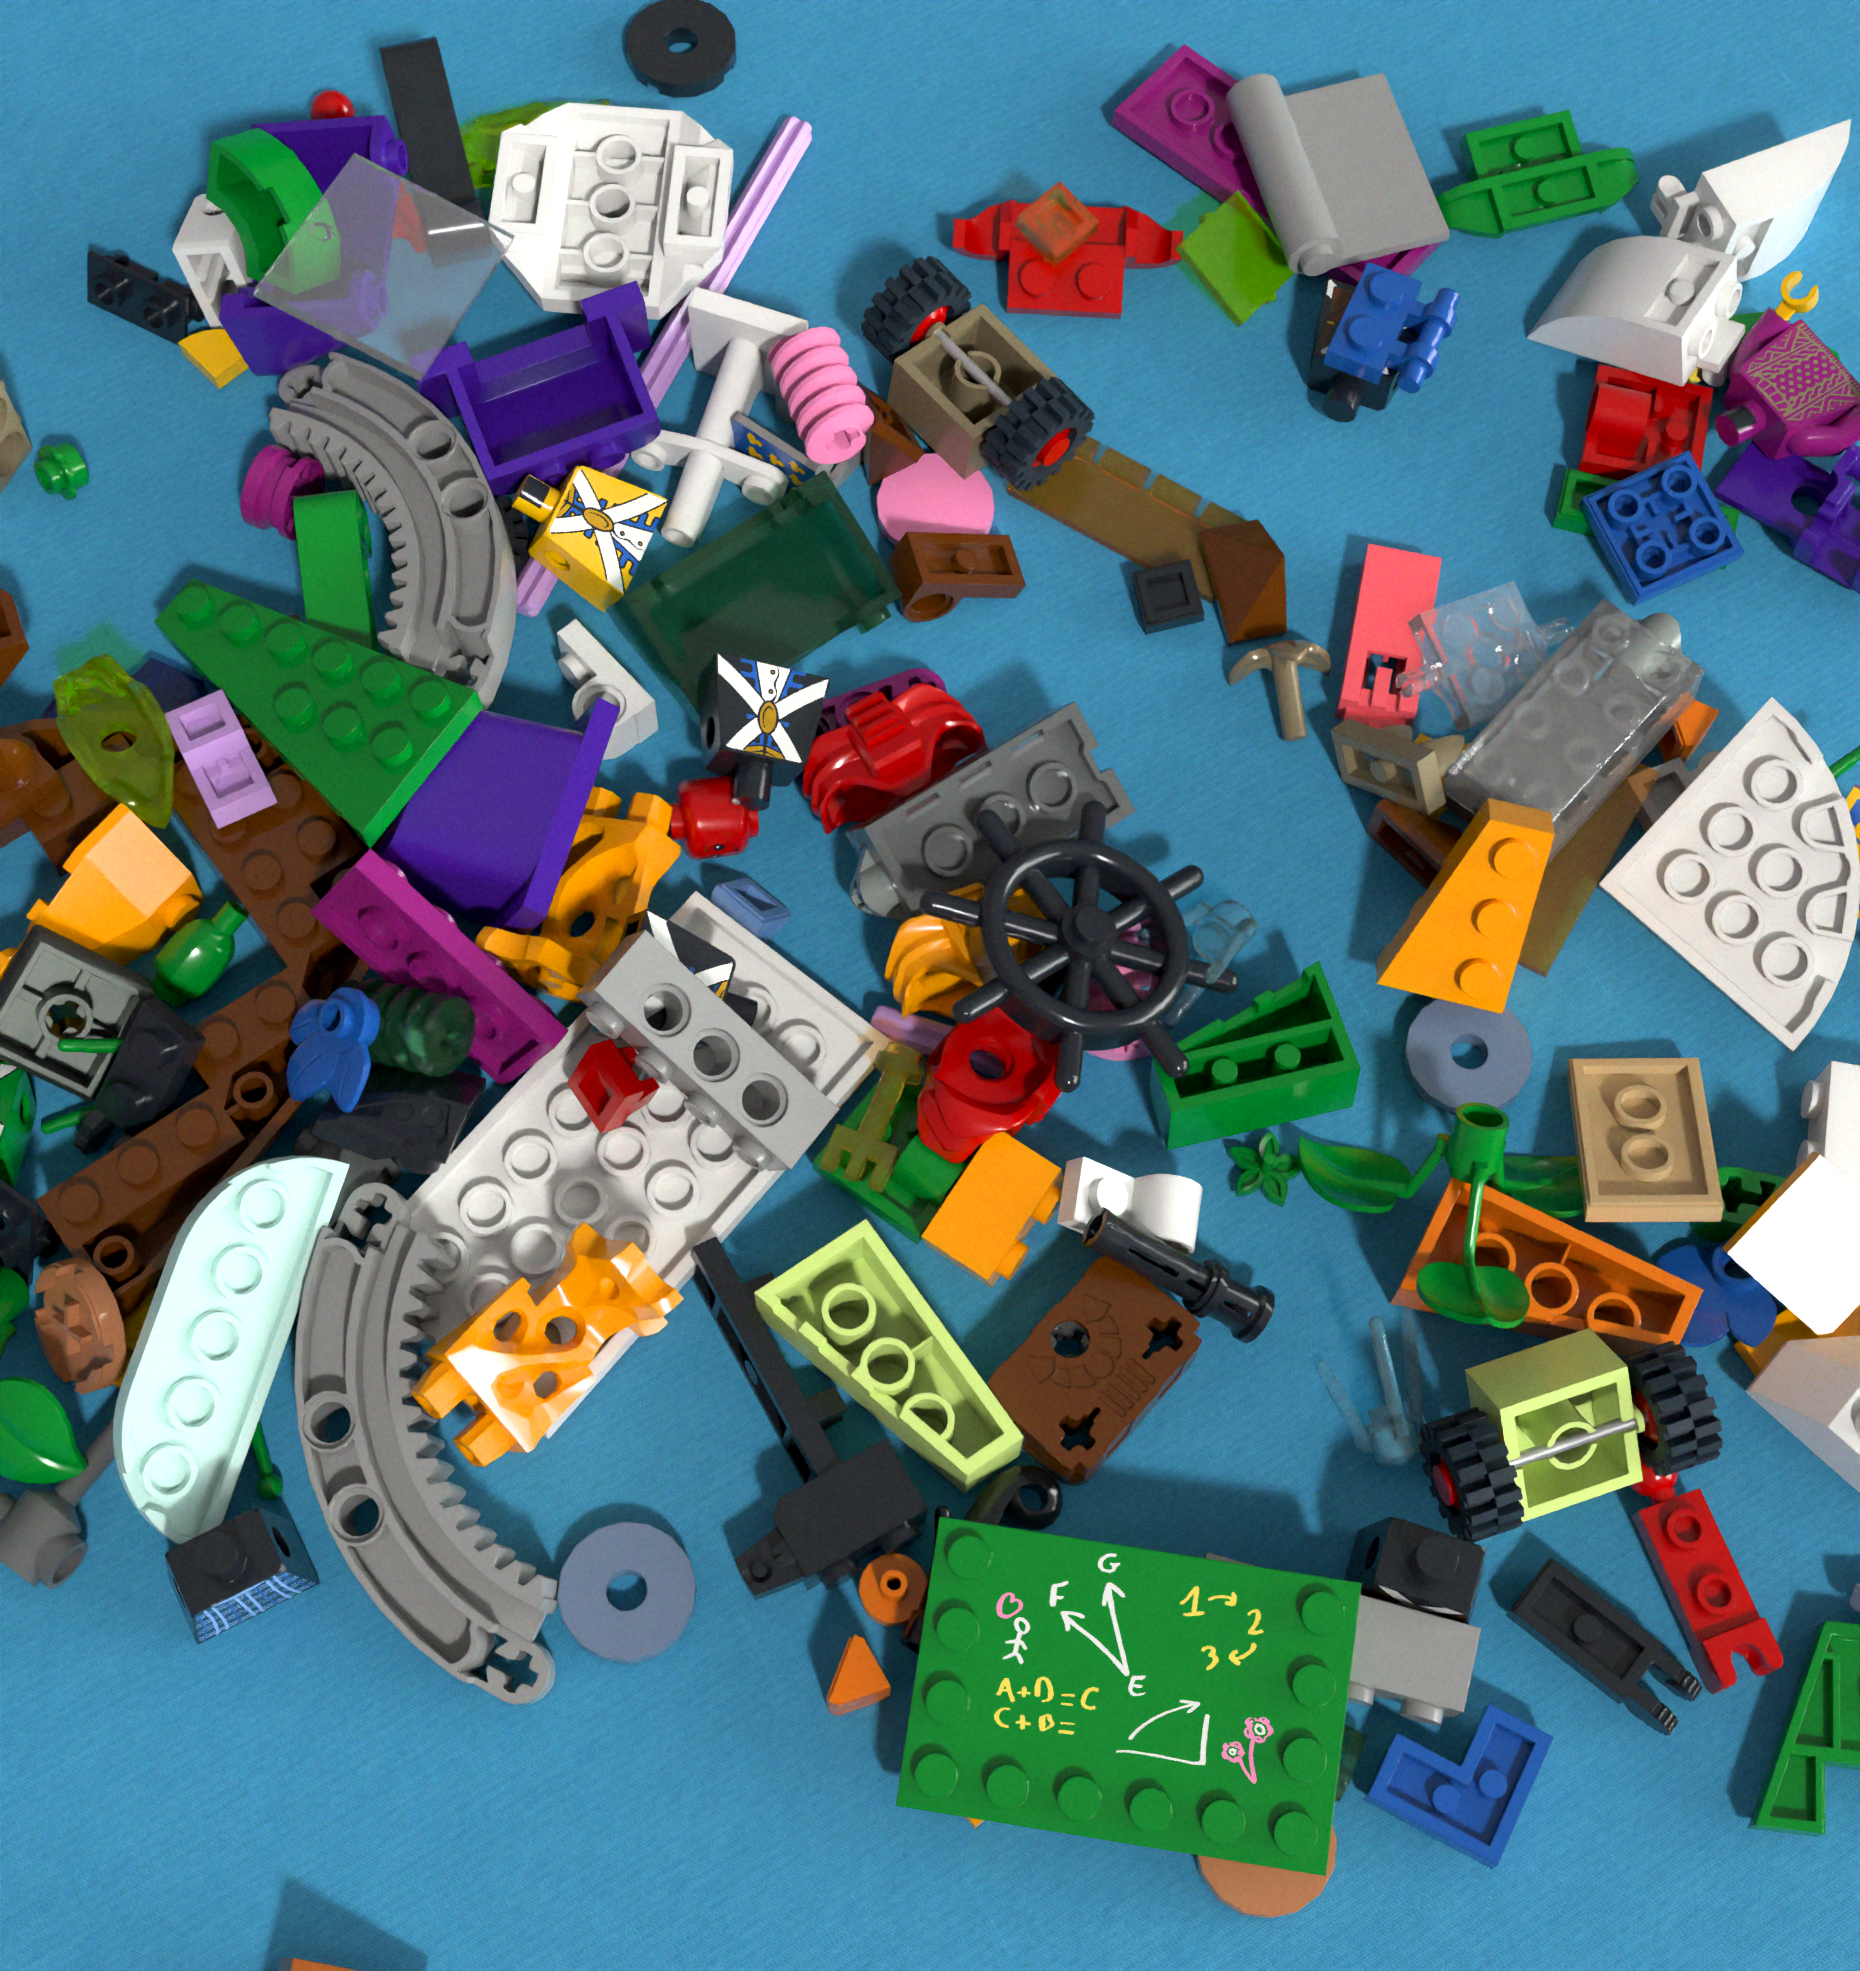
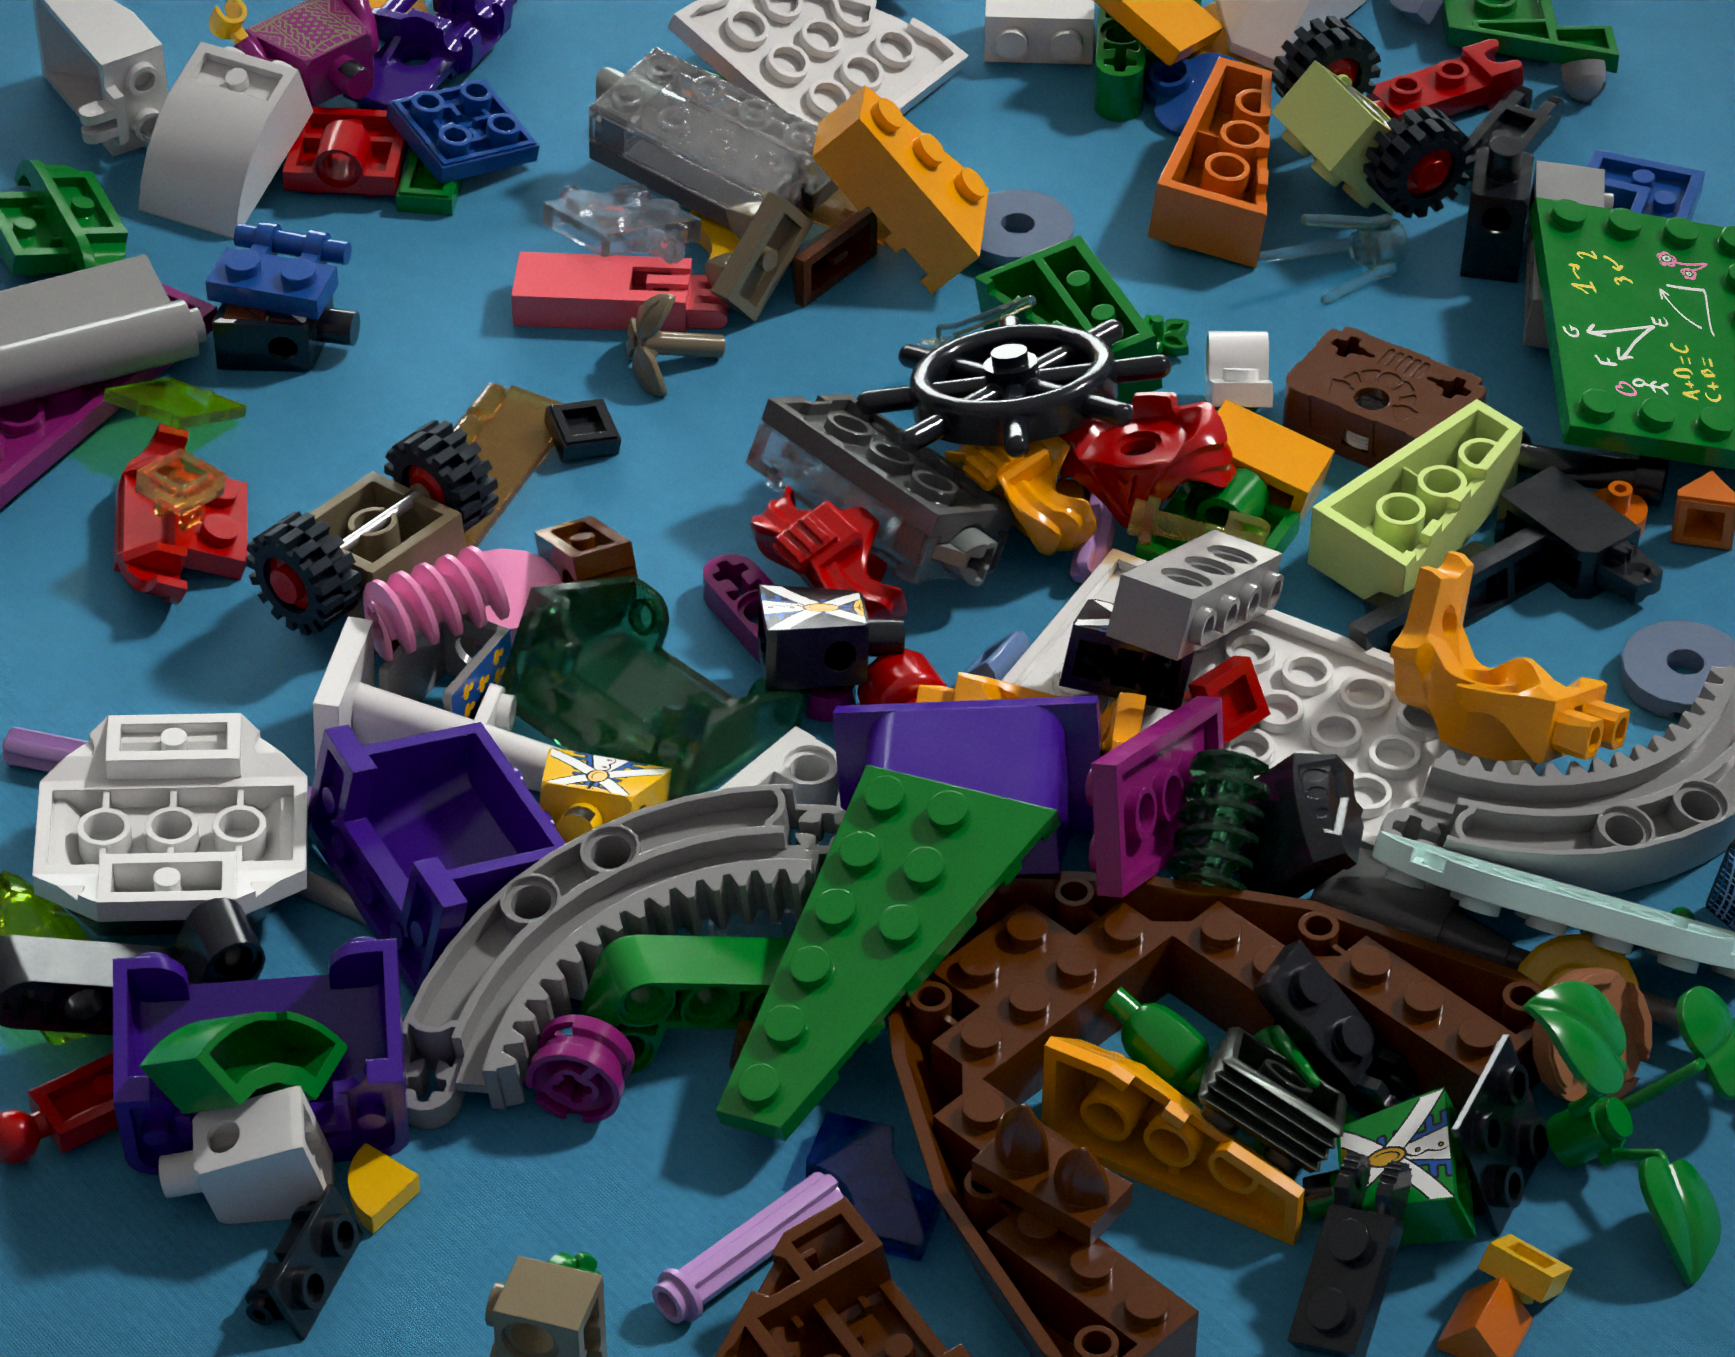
camera: 95 degrees left, 25 degrees down
(36, 552) = (686, 1290): none -> lavender axle
(106, 700) = (986, 1056): clear neon green piece -> none
(220, 759) = (971, 998): lavender slope -> none
(333, 1047) = (1275, 858): blue plate -> none
(385, 266) = (326, 929): clear piece -> none
(1207, 1283) = (1281, 335): black pin -> none
(1246, 580) = (555, 369): reddish brown slope -> none
(1474, 1151) = (1141, 159): green plant -> none
(1643, 1140) = (1080, 114): tan tile -> none
(1722, 1773) = (1584, 78): none -> light grey hinge

